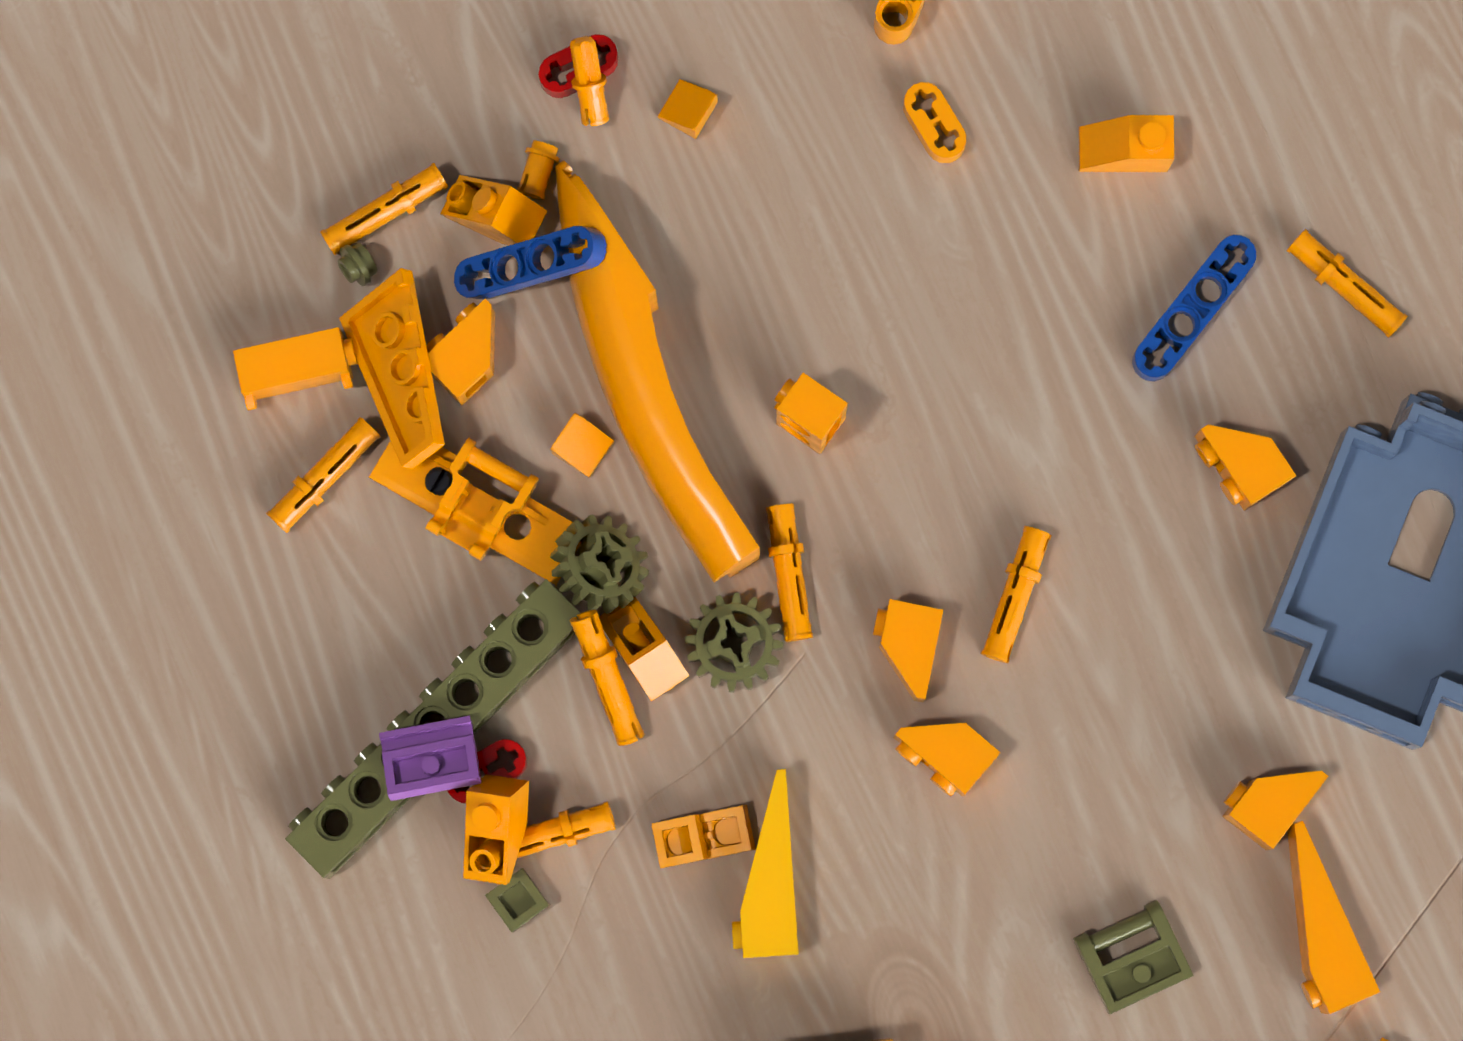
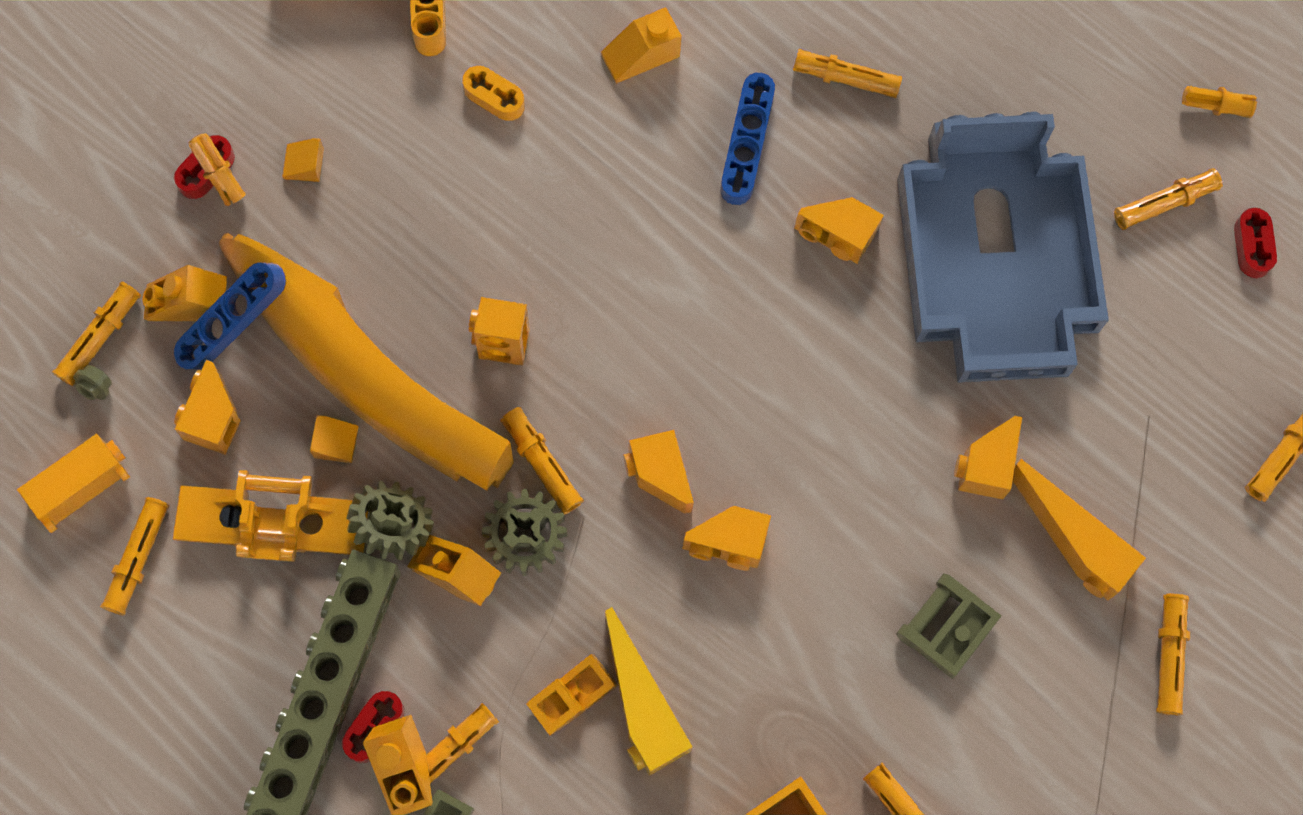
camera: 35 degrees left, 10 degrees down
(396, 366) = (158, 442): light orange wing -> none
(430, 758) = (320, 732): medium lavender plate -> none
(538, 169) = (206, 250): light orange pin -> none
(603, 668) = (429, 596): light orange pin -> none
(1016, 594) = (722, 397): light orange pin -> none

